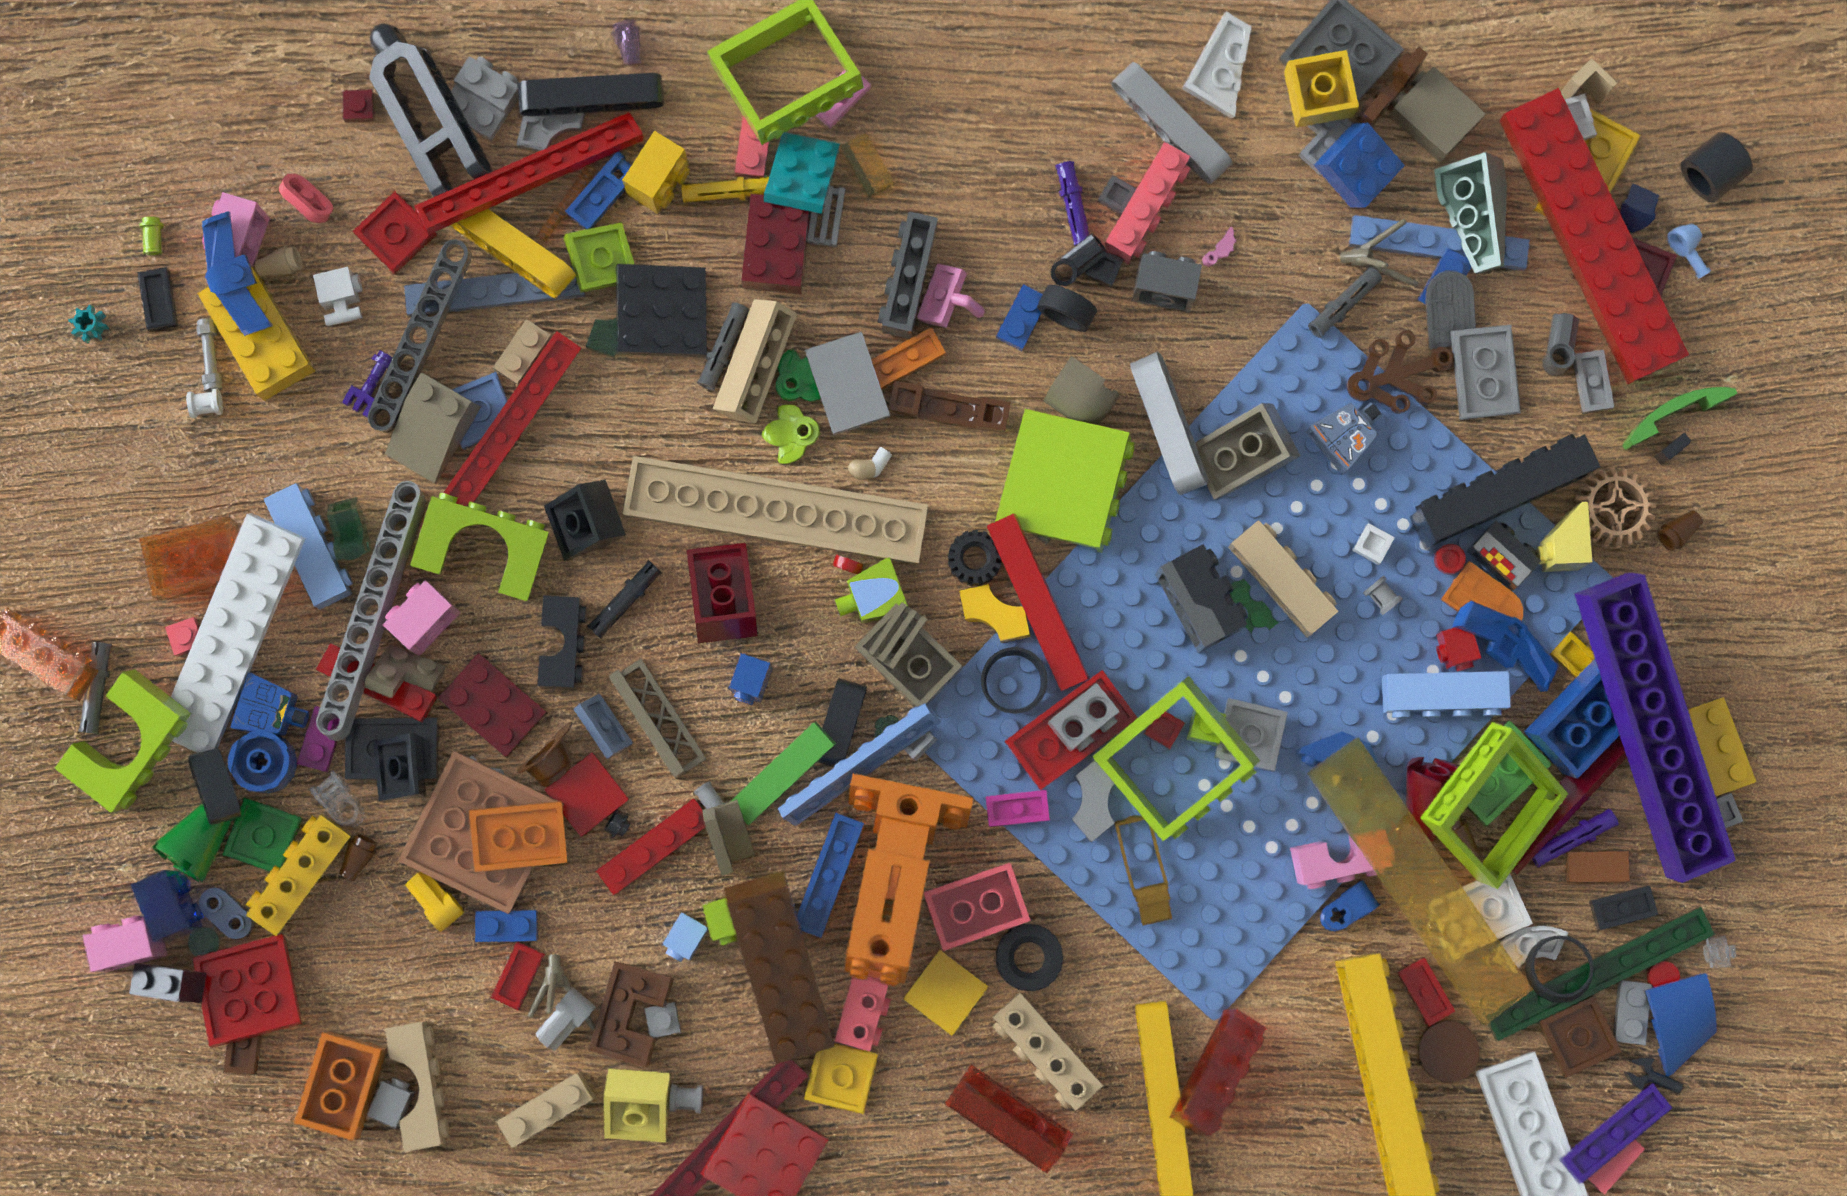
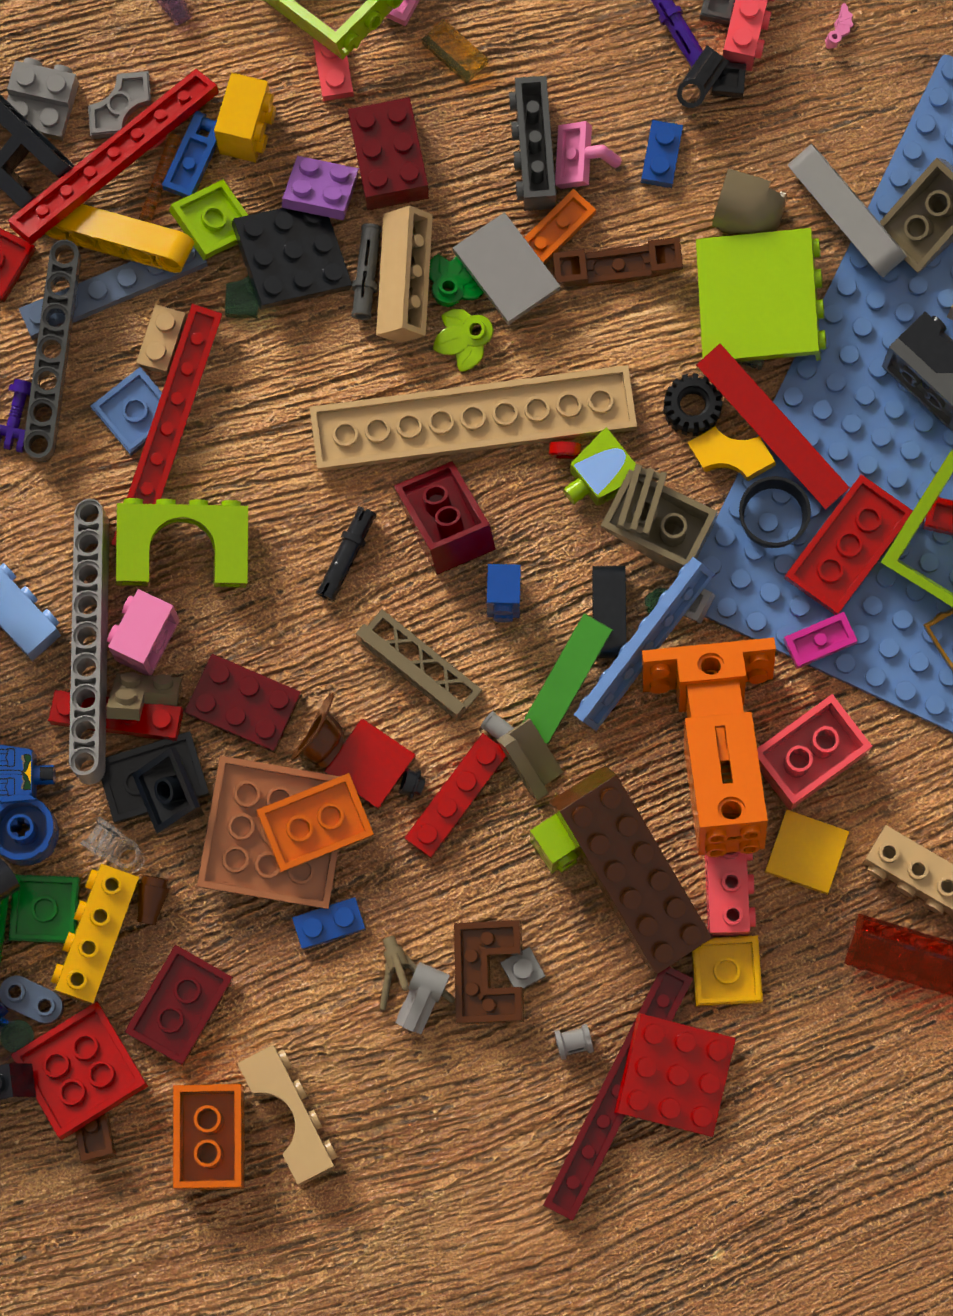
camera: 10 degrees left, 5 degrees down
(317, 748) = (74, 797): magenta plate -> none
(348, 529) = (38, 567): clear green brick -> none
(352, 959) = (179, 1005): none -> dark red plate
(391, 1102) = (267, 1139): light grey brick -> none
(430, 427) = (91, 440): dark tan slope -> none
(439, 906) = (252, 922): yellow piece -> none
(518, 976) = (357, 971): red tile -> none
(546, 1109) = (431, 1096): tan brick -> none
(563, 669) = (289, 589): black arch -> none
(584, 519) = (279, 486): black slope -> none
(590, 94) = (151, 62): black beam -> none
(603, 726) = (365, 688): sand blue plate -> none
(636, 1105) = (525, 1064): light yellow slope -> none
(685, 937) = (519, 876): light blue brick -> none
(705, 257) = (320, 187): none -> medium lavender plate
(737, 188) = (319, 116): yellow pin -> none
(801, 172) = (392, 74): teal plate -> none
(813, 222) = (425, 87): light grey tile -> none
(828, 874) = (648, 762): blue plate -> none
(870, 468) = (555, 348): arm -> none
(1052, 957) = (899, 771): black tyre -> none
(1067, 308) = (705, 127): black tyre -> none
(1079, 712) = (854, 522): light grey brick -> none
(1093, 814) = (899, 621): light grey tile -> none
(1166, 281) = (798, 72): dark grey brick -> none

